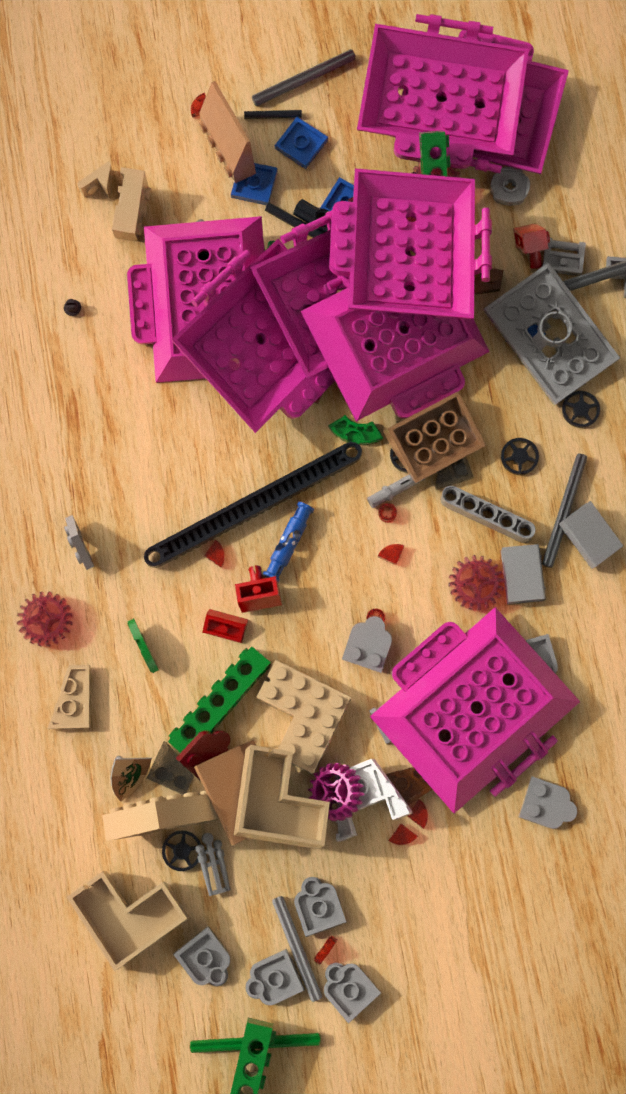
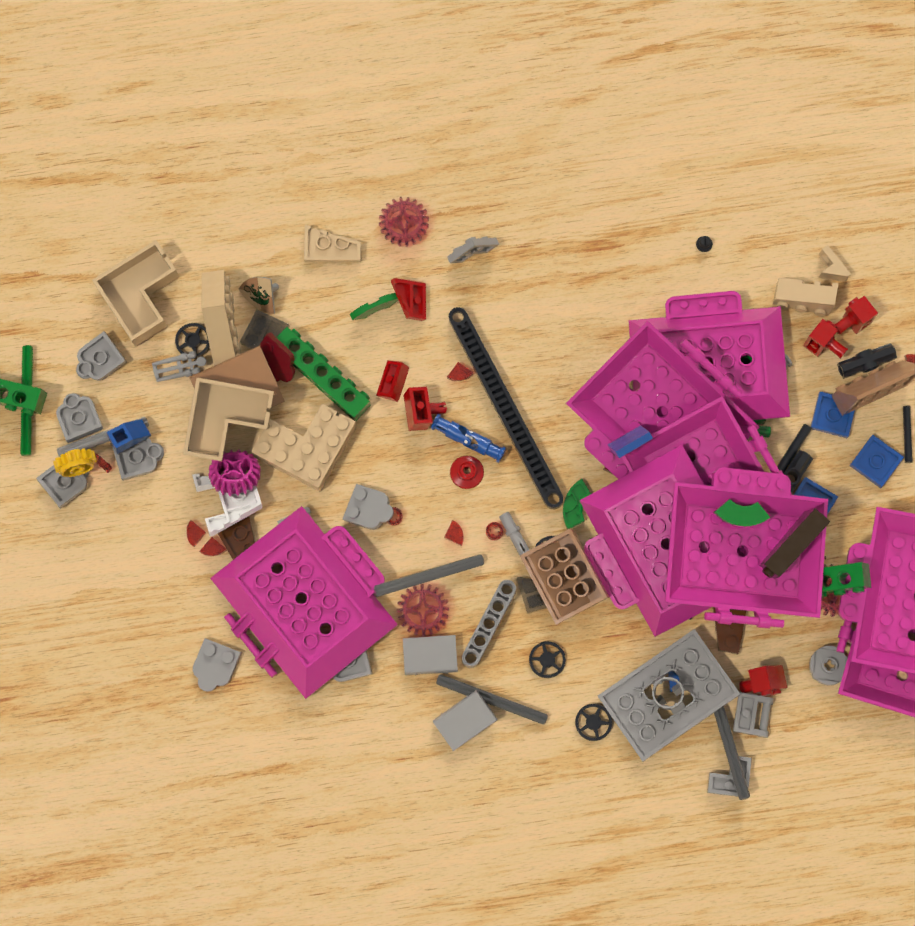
camera: 90 degrees right, 0 degrees up
(133, 606) = (411, 298): none -> red wing
(153, 155) = (857, 316): none -> red brick
(177, 187) = (823, 338): none -> red brick
(198, 149) = (867, 360): none -> black piece
(297, 364) = (630, 441): none -> blue tile
(297, 915) = (128, 435): none -> blue slope
(323, 553) = (464, 480): none -> red piece
(332, 975) = (75, 462): none -> yellow gear
(378, 246) = (741, 515): none -> green tile
(404, 194) = (794, 543): none -> dark brown slope
(441, 577) = (428, 575): none -> dark grey axle

